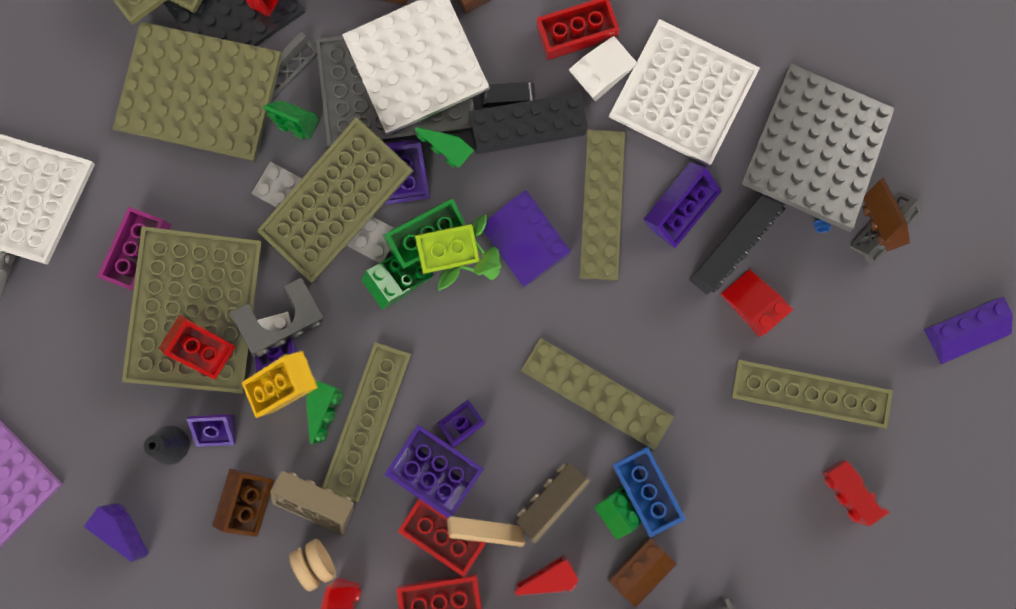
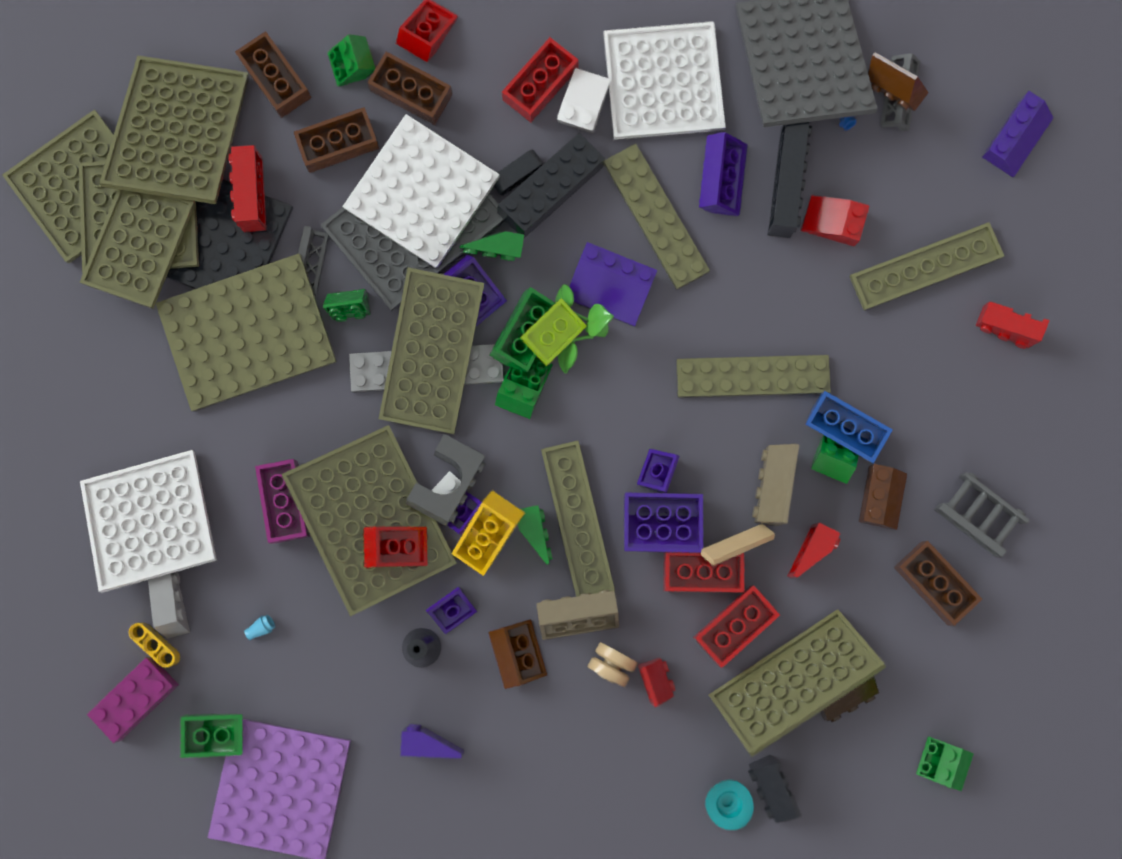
camera: 40 degrees left, 0 degrees up
(52, 343) = (260, 627): none -> medium azure cone

